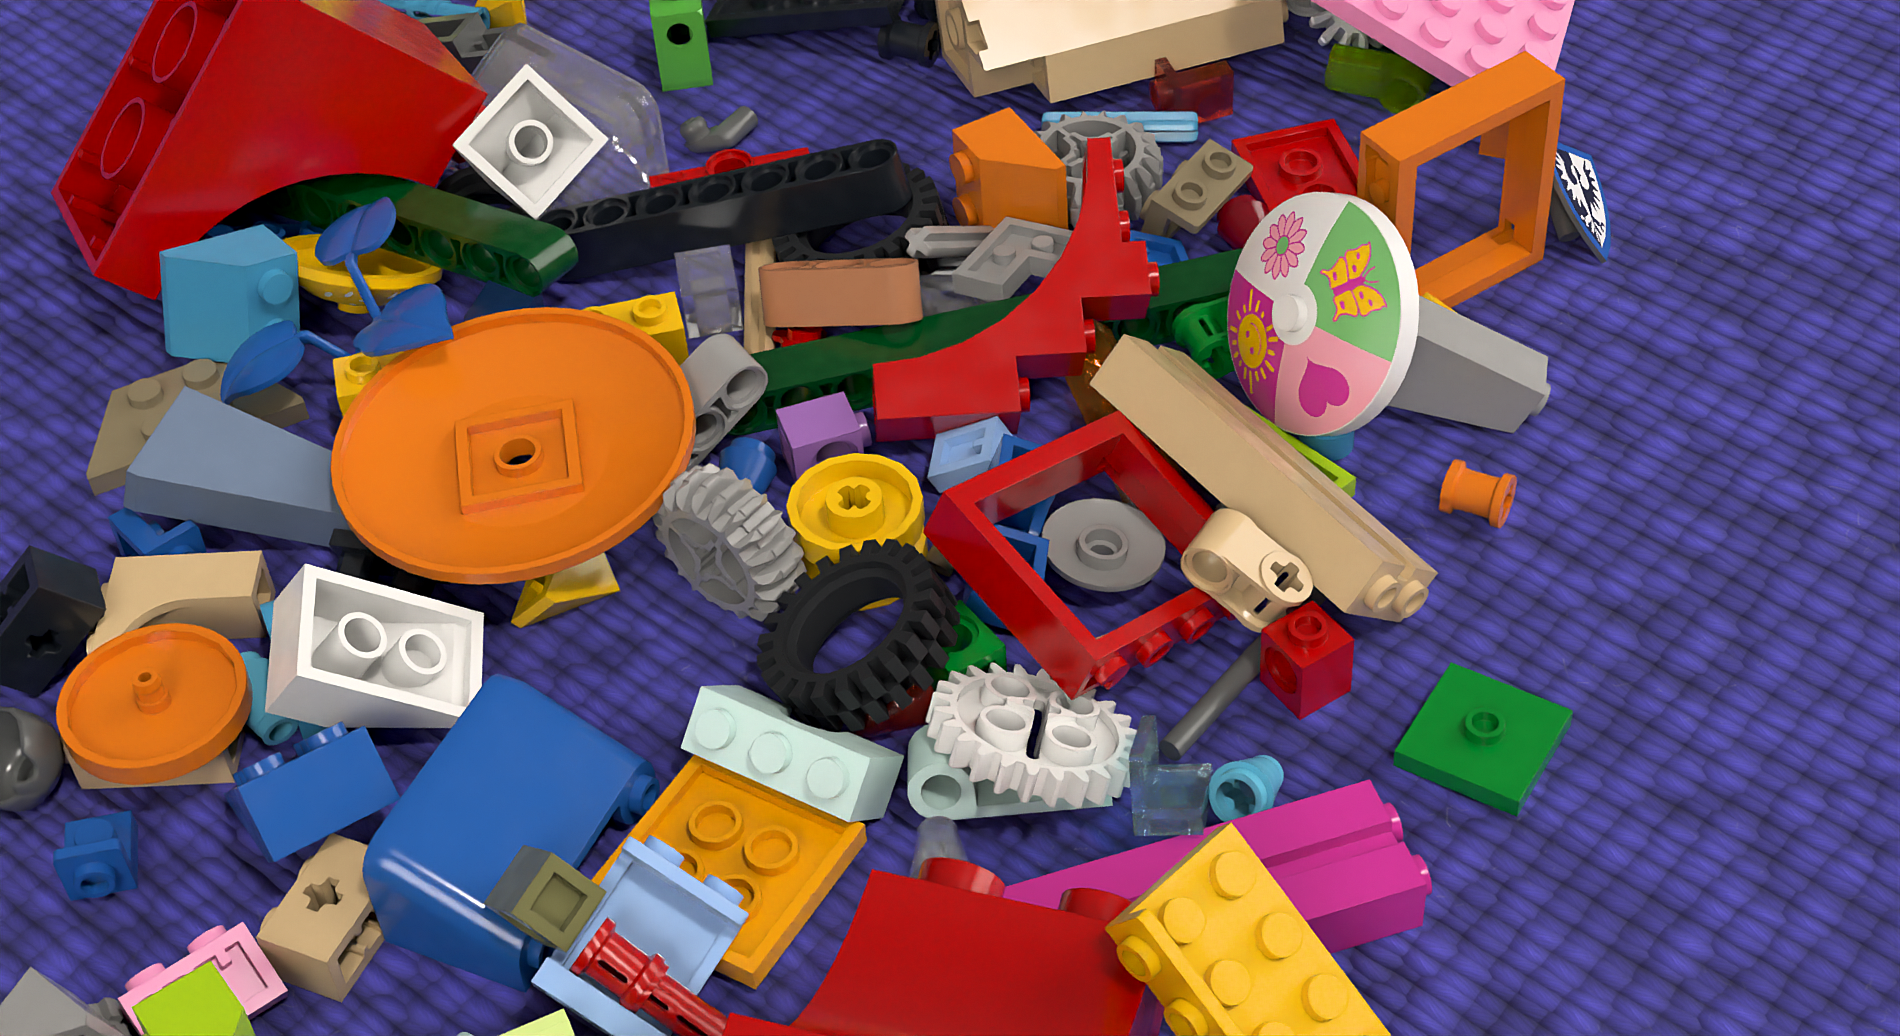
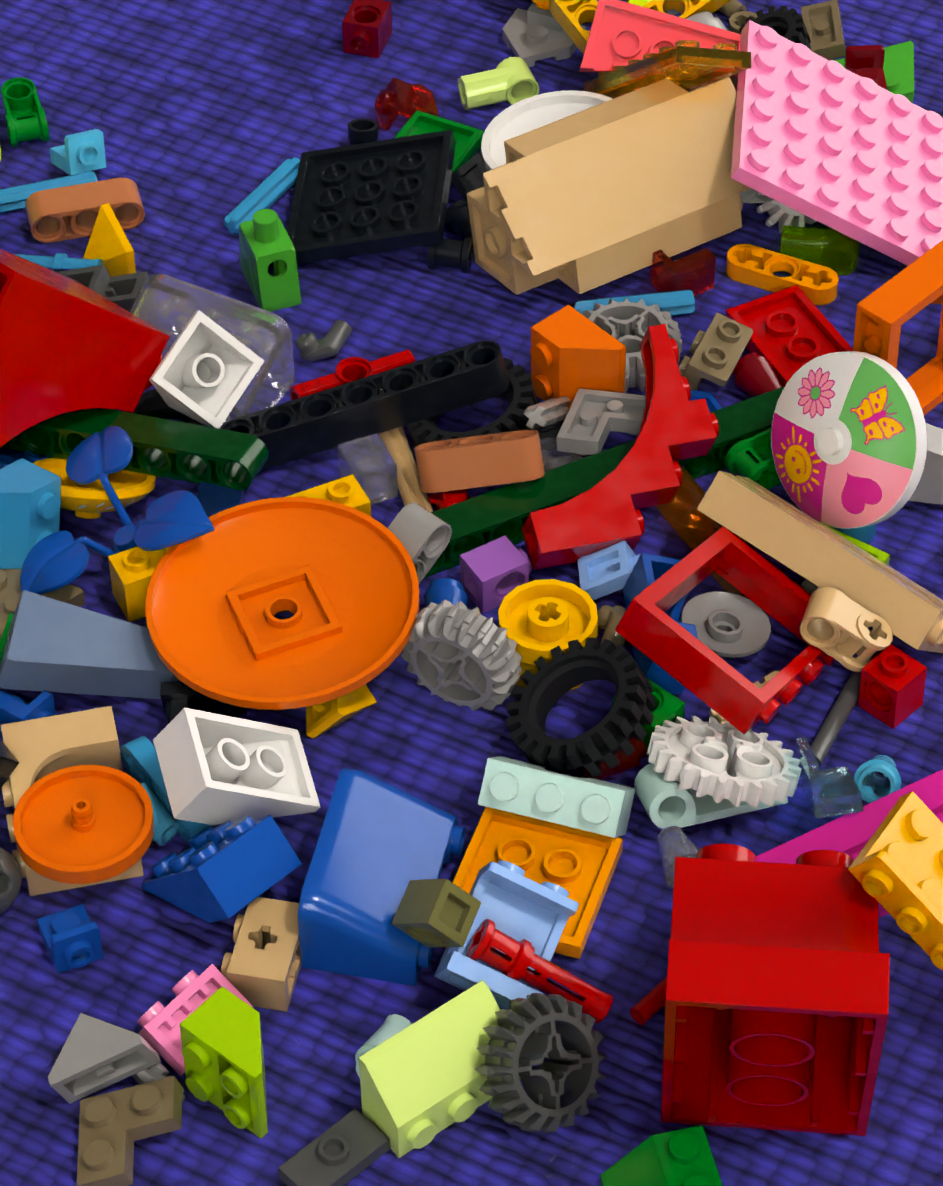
camera: 15 degrees left, 0 degrees up
(1291, 91) = (746, 262): none -> light orange beam

